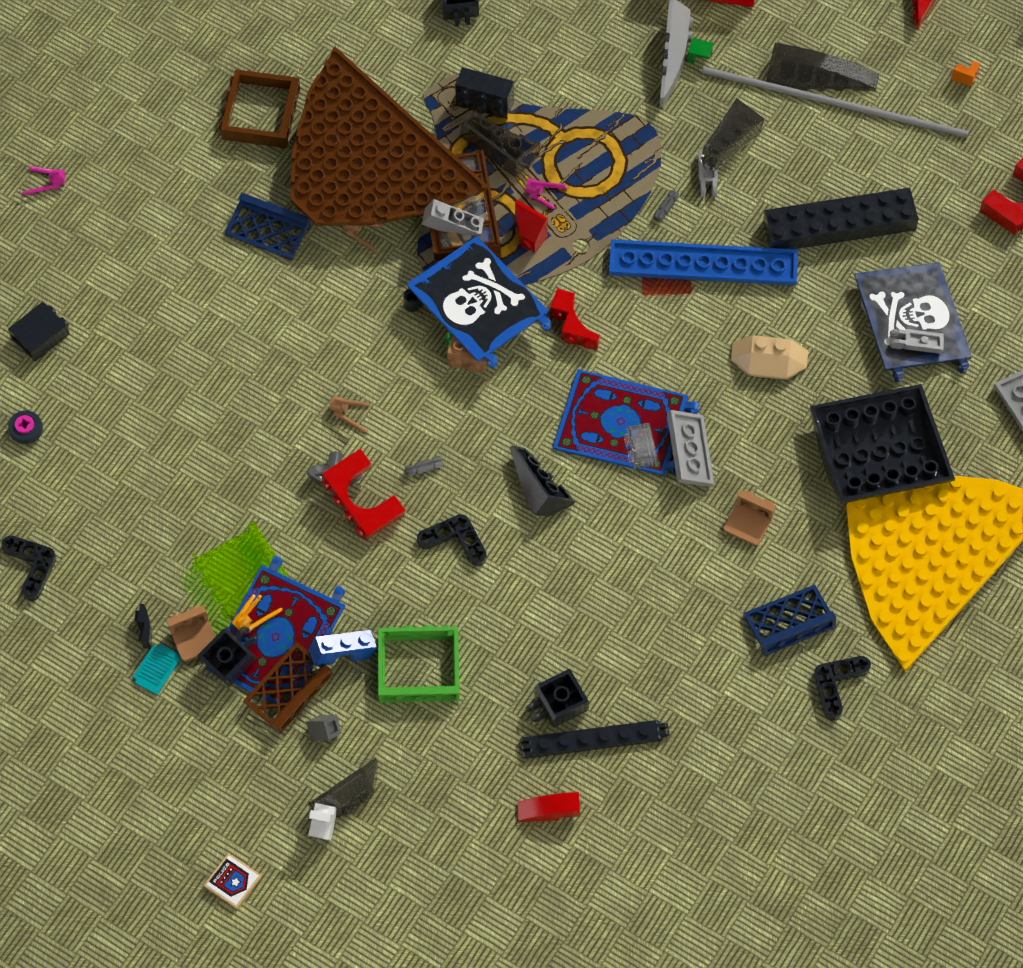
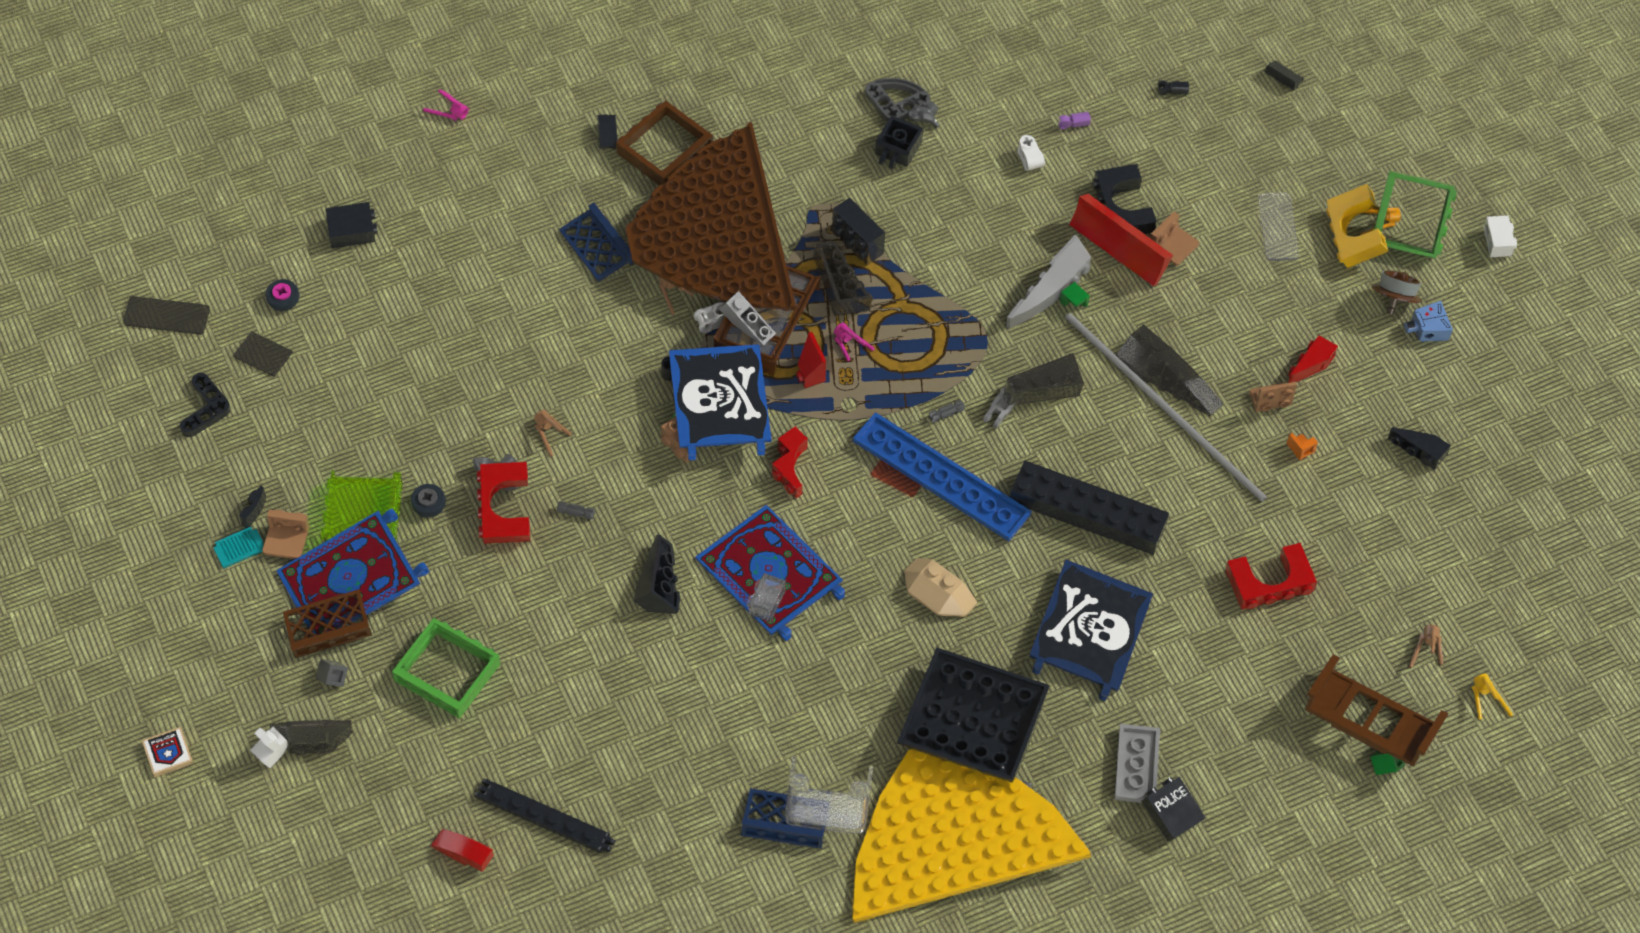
camera: 30 degrees right, 5 degrees down
(46, 489) = (262, 354): none -> clear smoke piece
(203, 124) = (607, 131): none -> black slope
(227, 644) = (296, 567): black hinge -> none
(243, 620) = (330, 546): light orange plant -> none
(294, 538) = (426, 507): none -> black wheel
(328, 648) = (406, 620): arch -> none
(414, 238) = (712, 317): none -> white piece
(459, 532) = (564, 583): black beam -> none
(558, 711) = (538, 765): black hinge -> none
(690, 448) = (807, 624): light grey plate -> none
(750, 518) = (815, 713): medium nougat bracket -> none
(819, 593) = (827, 808): none -> clear windscreen
(832, 677) = (786, 887): black beam -> none
(914, 45) = (1273, 396): none -> medium nougat bracket
(917, 340) = (1075, 647): light grey hinge -> none

